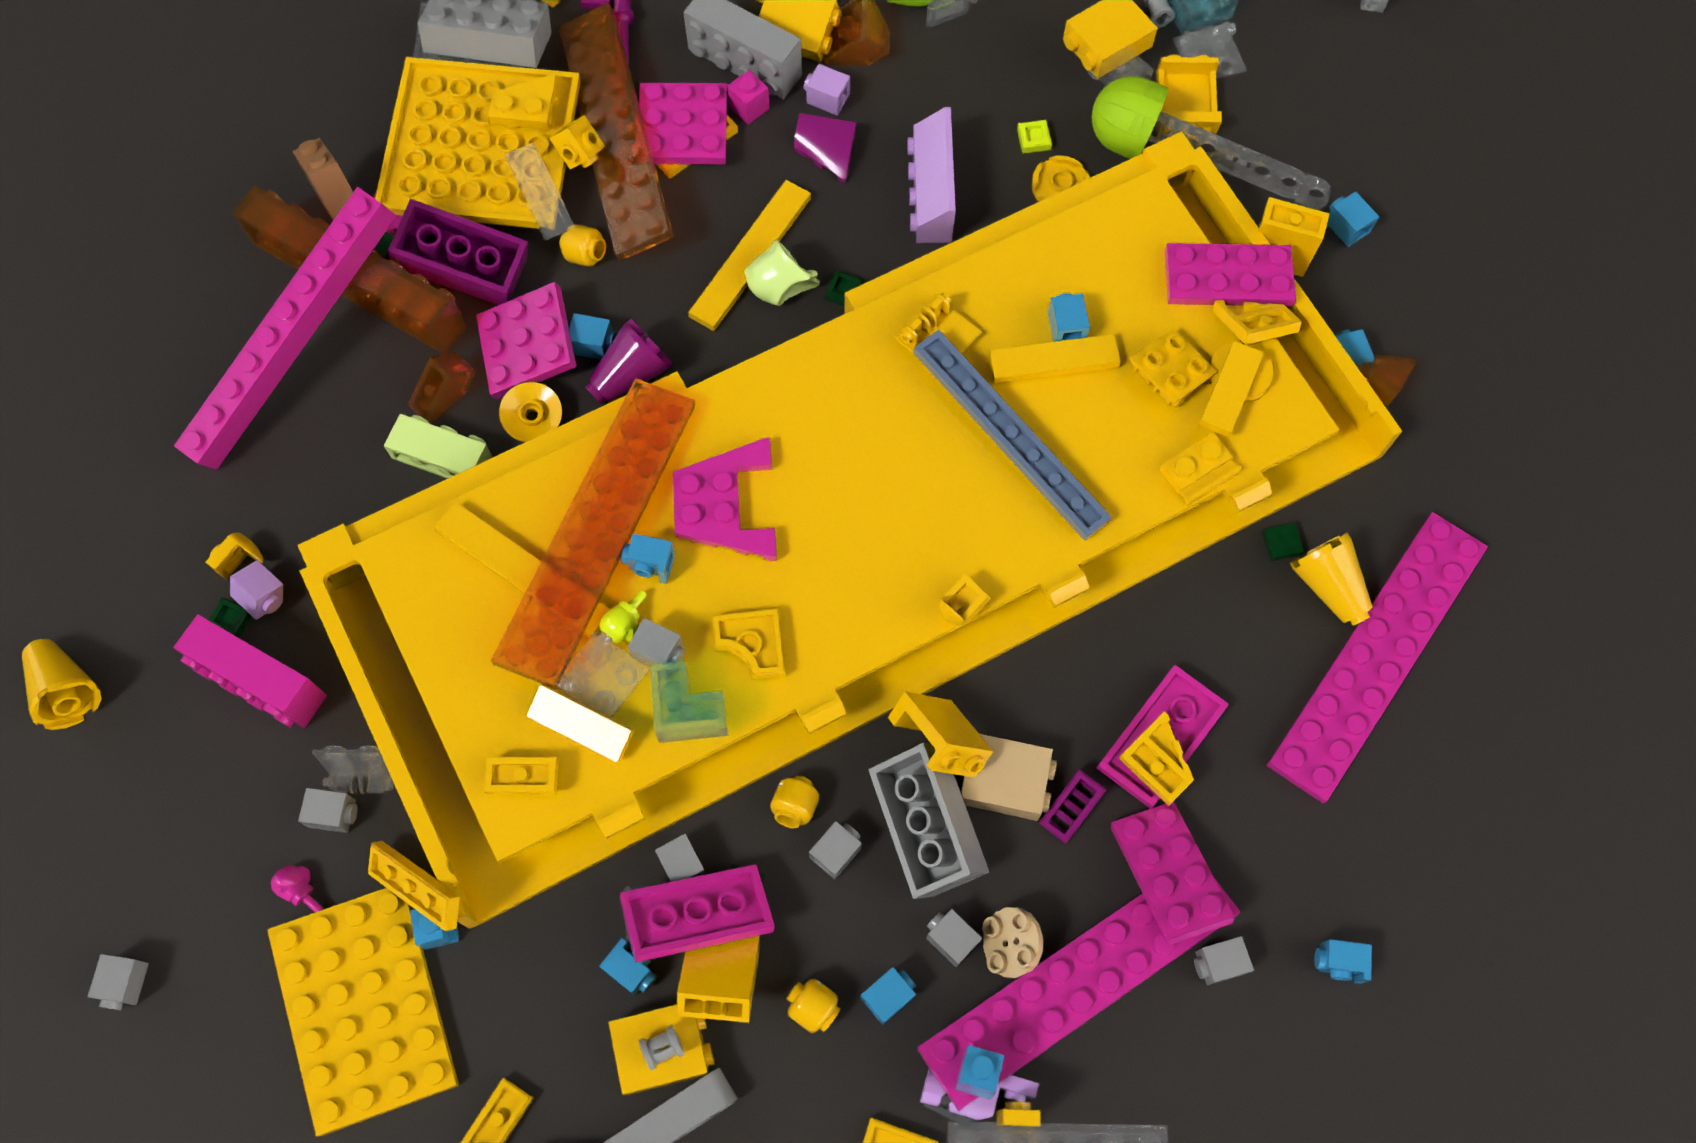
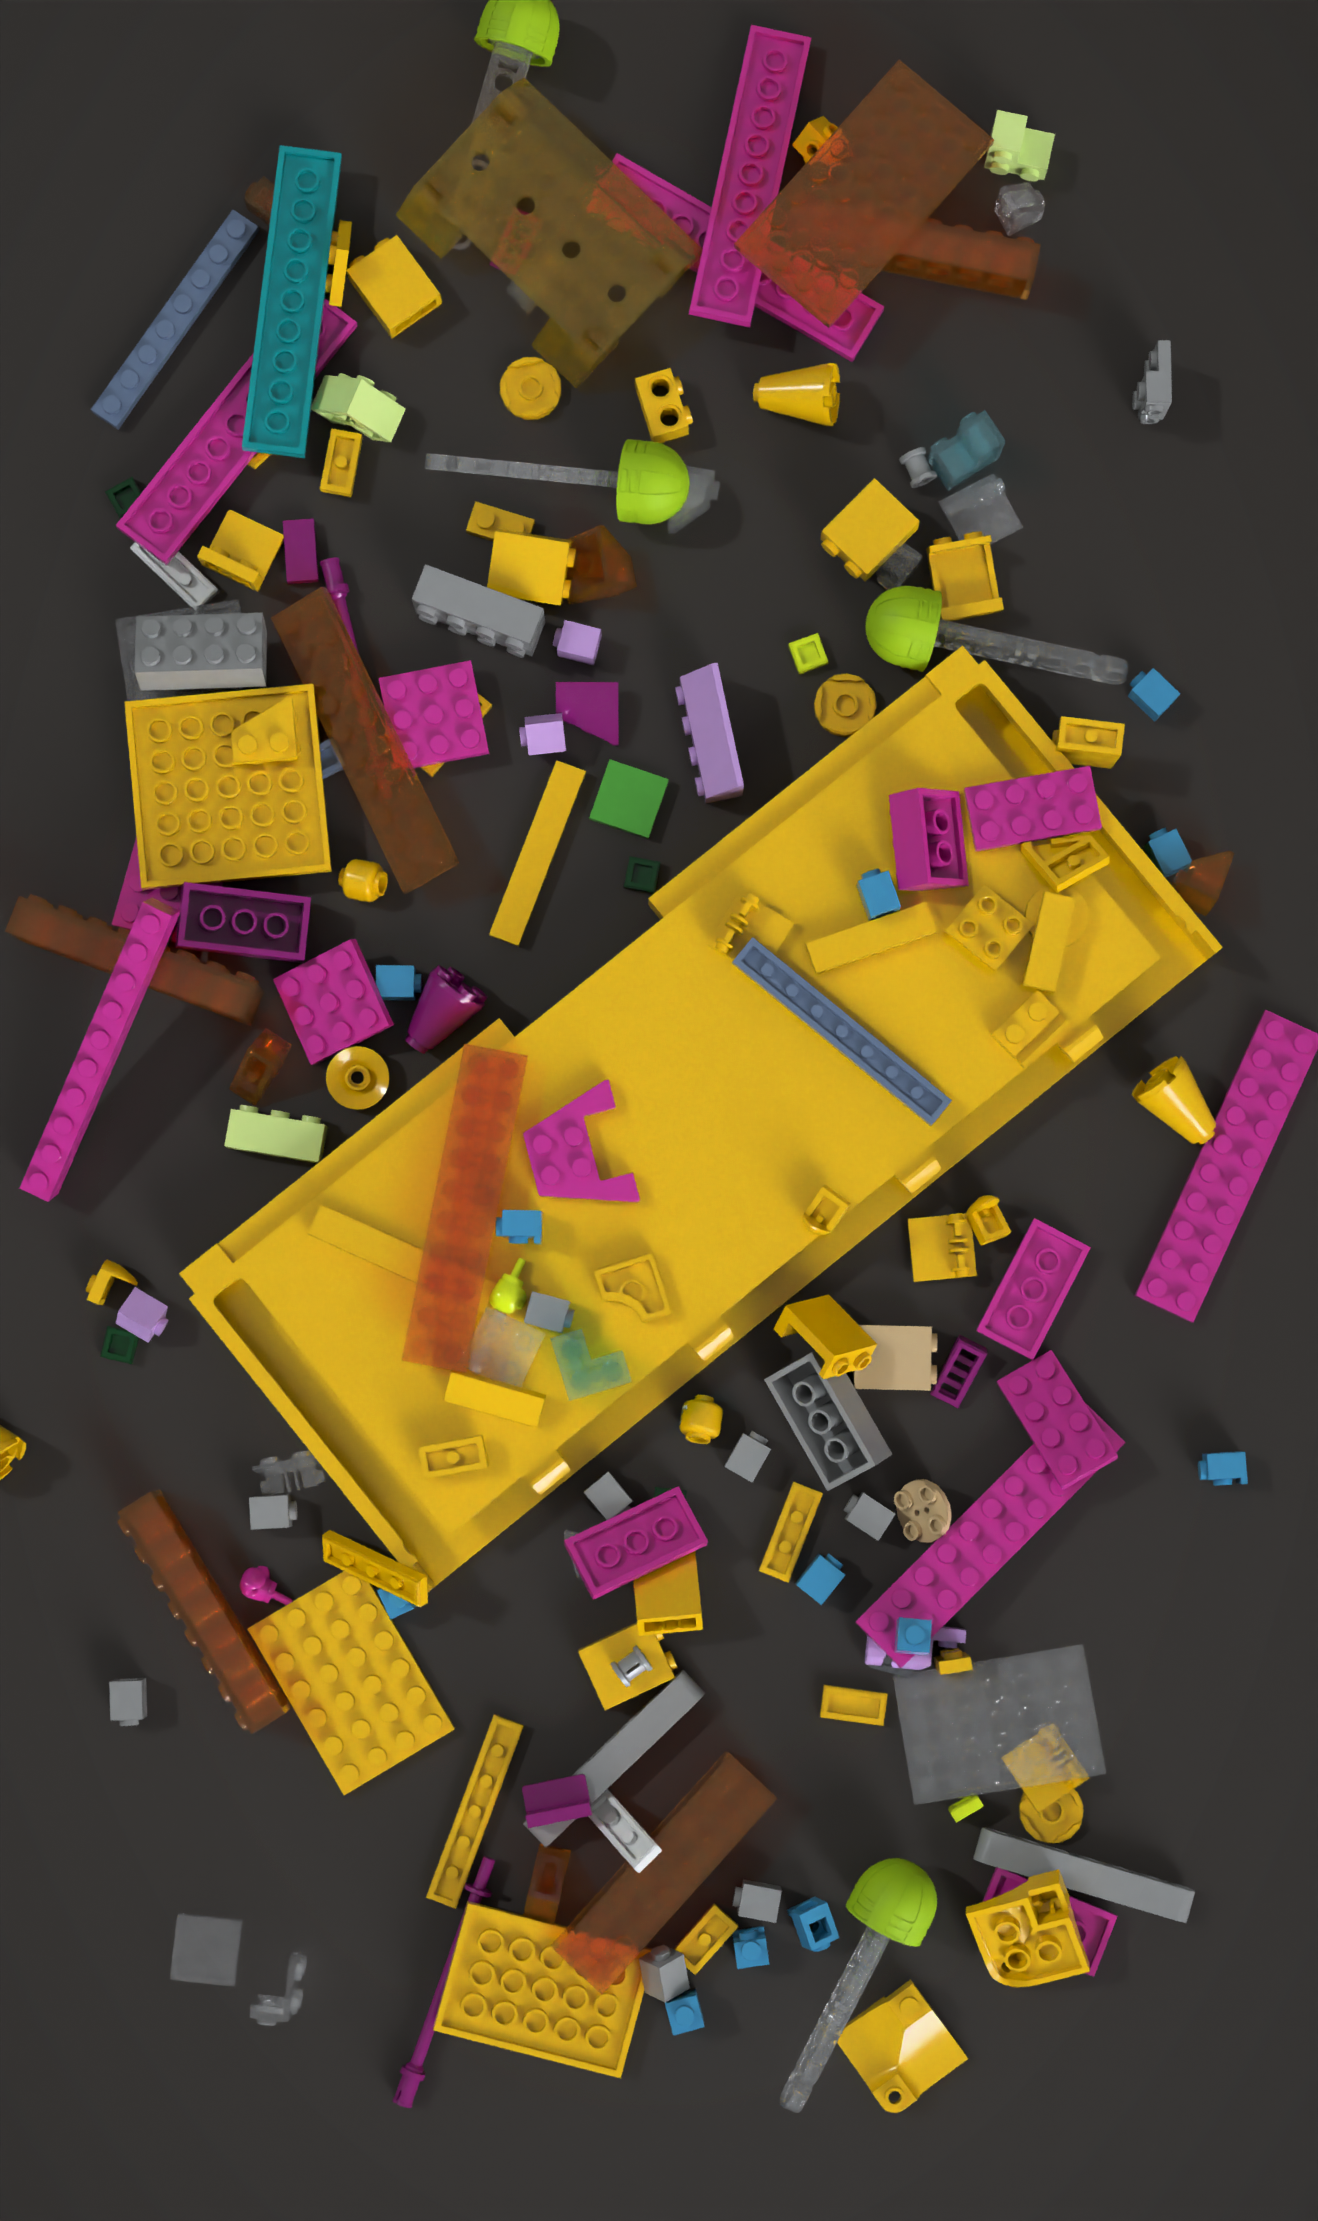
camera: 10 degrees left, 15 degrees up
(223, 900) = (204, 1611): none -> clear orange brick
(249, 673) = (163, 1398): dark pink brick -> none
(324, 175) = (92, 875): medium nougat brick -> none
(539, 191) = (313, 845): clear slope -> none
(577, 143) = (335, 776): yellow brick -> none
(623, 969) = (579, 1601): dark azure brick -> none
(748, 97) = (496, 670): dark pink brick -> none
(777, 276) = (574, 877): yellowish green piece -> none
(778, 153) = (543, 734): none -> lavender brick
(812, 1005) = (755, 1600): yellow head -> none
(845, 224) = (629, 799): none -> bright green tile
(865, 940) = (790, 1532): none -> yellow tile
(1075, 678) = (941, 1247): none -> yellow hinge
(1124, 279) = (928, 839): none -> dark pink slope
(1126, 657) = (987, 1220): none -> yellow plate
(1159, 760) = (1032, 1317): yellow wing -> none
(1223, 961) = (1115, 1489): light grey brick -> none
(1282, 542) = (1123, 1068): dark green tile -> none

